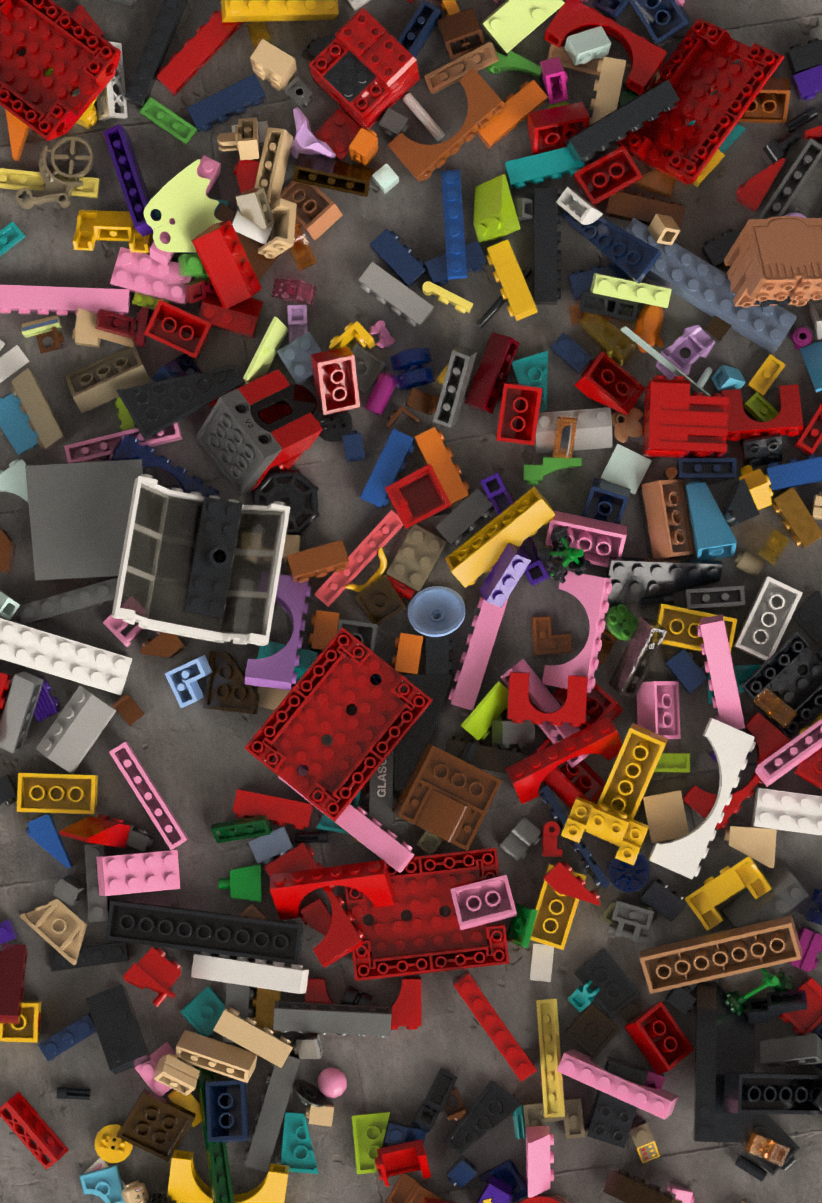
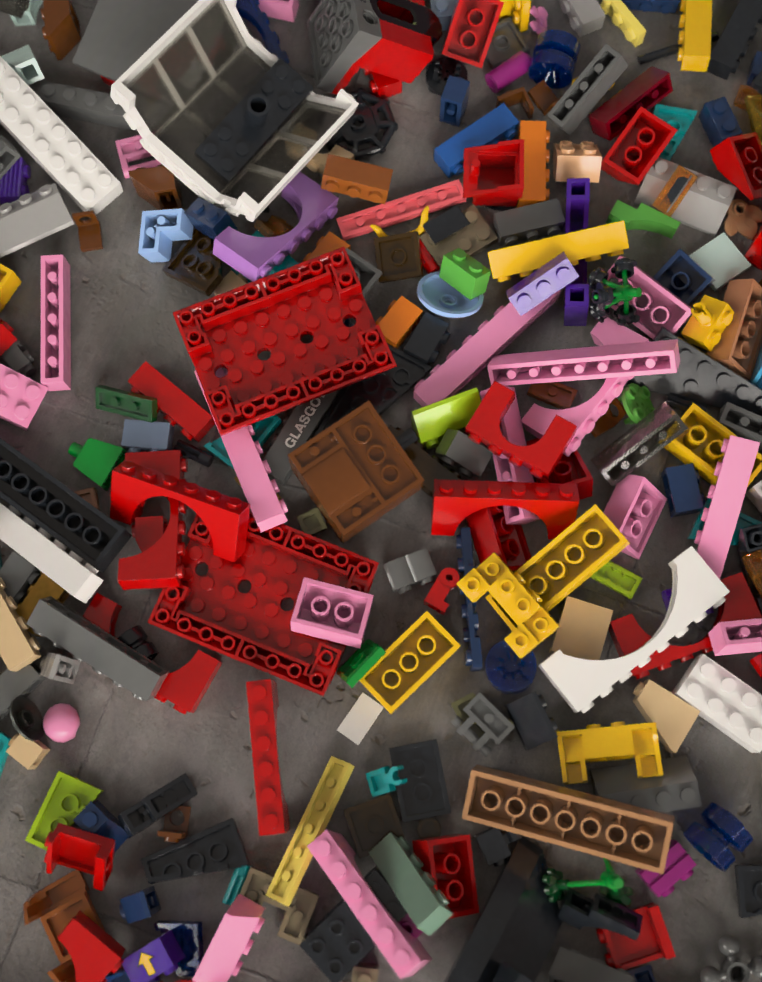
camera: 30 degrees right, 10 degrees down
(223, 653) = (208, 218): none -> dark blue brick
(276, 629) = (273, 227): none -> clear orange slope
(402, 553) = (446, 224): none -> black sticker
(439, 590) = (464, 273): none -> bright green brick
(475, 445) = (576, 161): none -> light nougat slope
(565, 883) = (433, 639): red slope -> none
(567, 622) = (585, 363): none -> bright pink brick
(638, 1056) = (410, 883): none -> sand green brick
(641, 532) = (707, 322): none -> yellow brick

